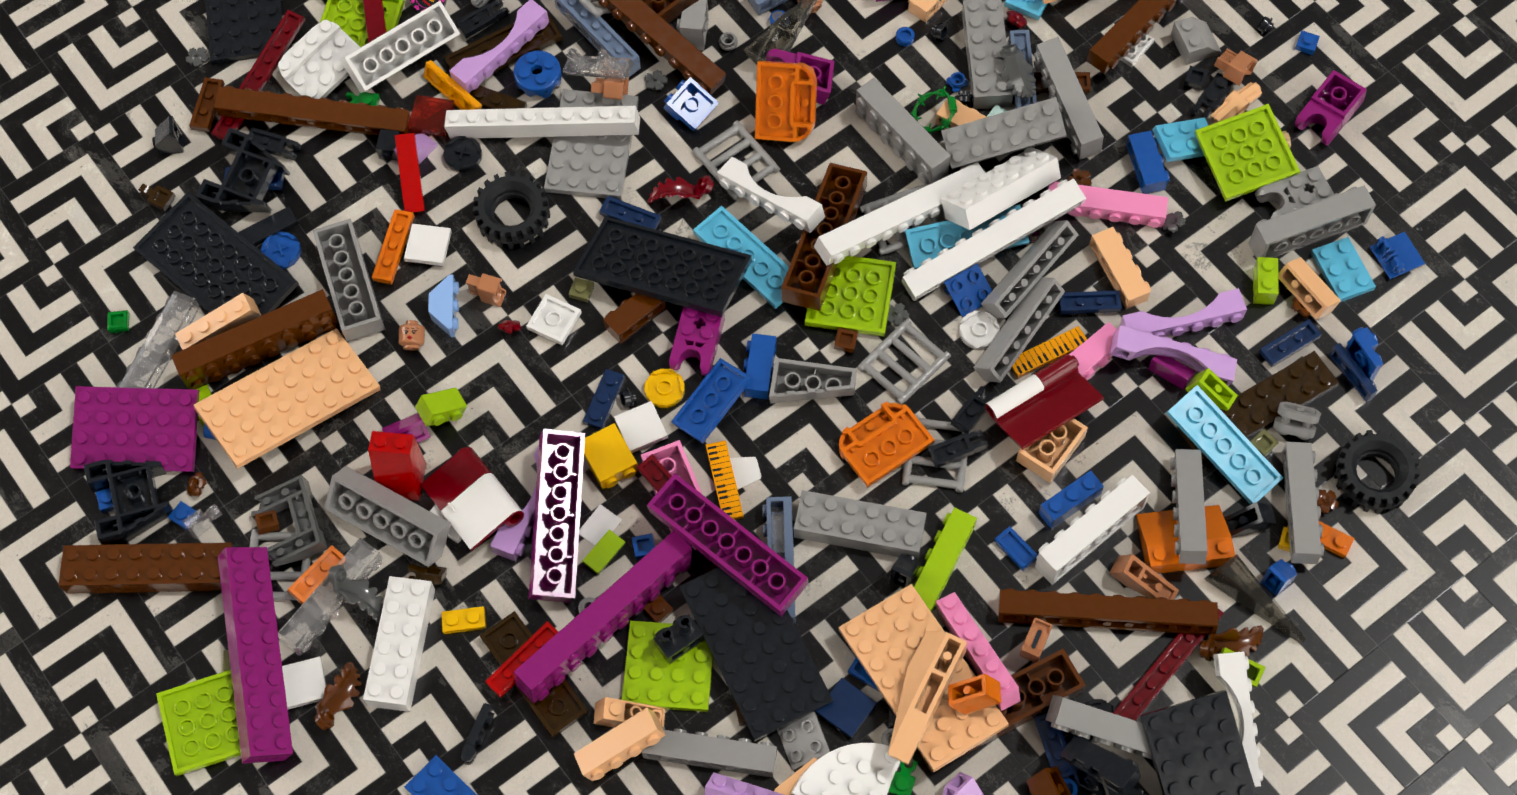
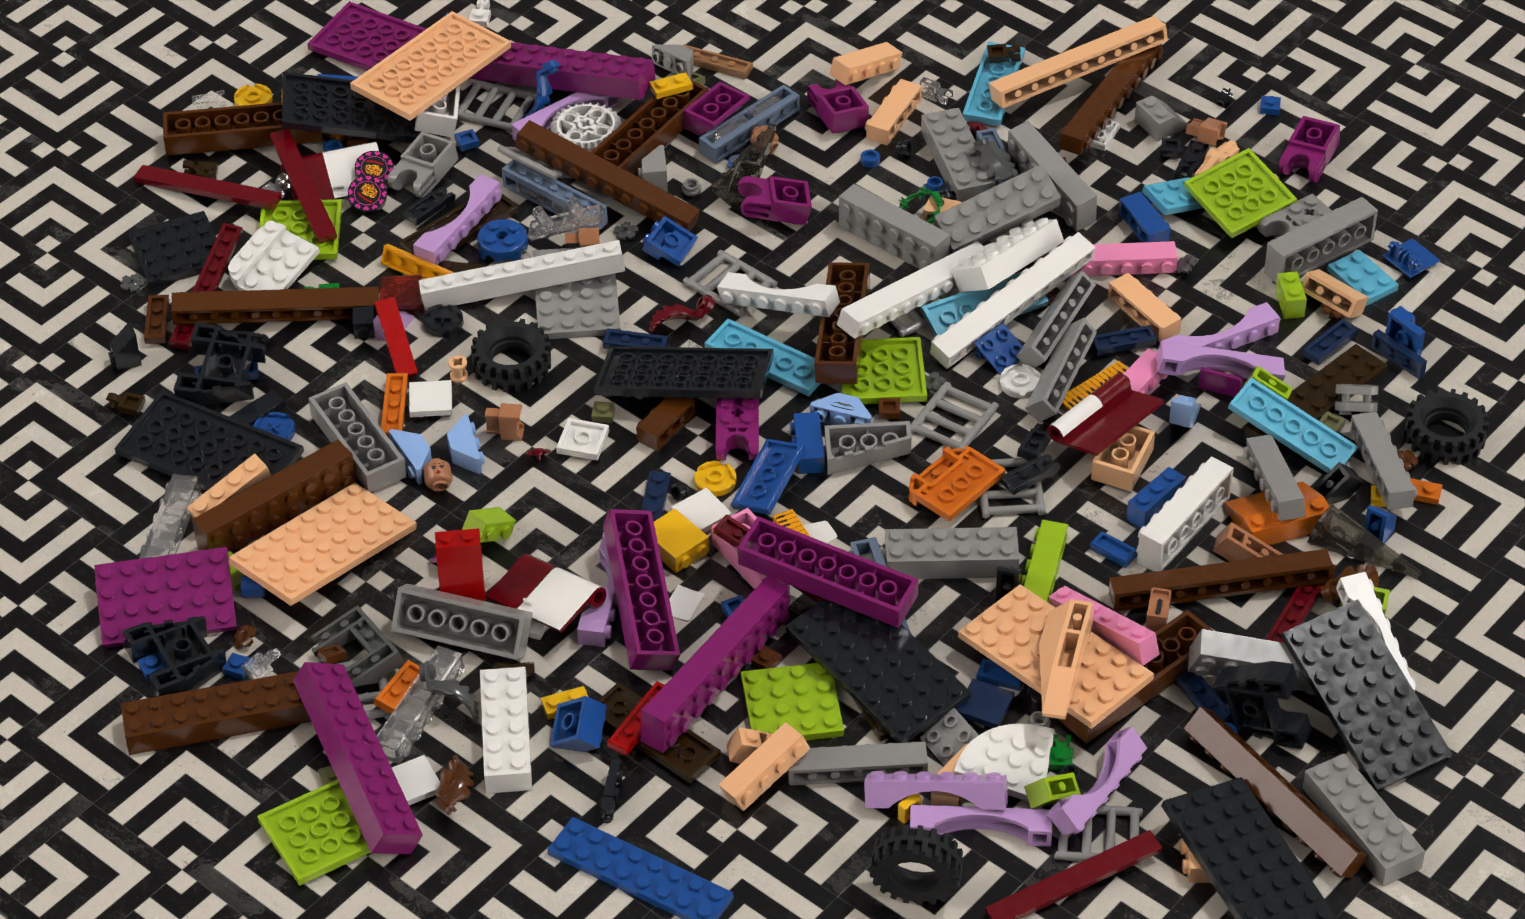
camera: 15 degrees left, 20 degrees down
(118, 321) = (115, 515): green tile -> none
(395, 305) = (414, 451): none -> light blue slope
(400, 47) = (353, 235): white brick -> none
(462, 214) = (458, 369): none -> light nougat bush
(465, 655) = (578, 724): none -> blue slope
(603, 552) = (695, 621): lime tile -> none
(678, 638) = (797, 668): black brick -> none
(785, 101) = (768, 218): orange plate -> none
(800, 336) = (841, 410): none -> light blue slope
(974, 694) = (1114, 643): orange brick -> none
(1125, 401) = (1184, 411): none -> light blue slope

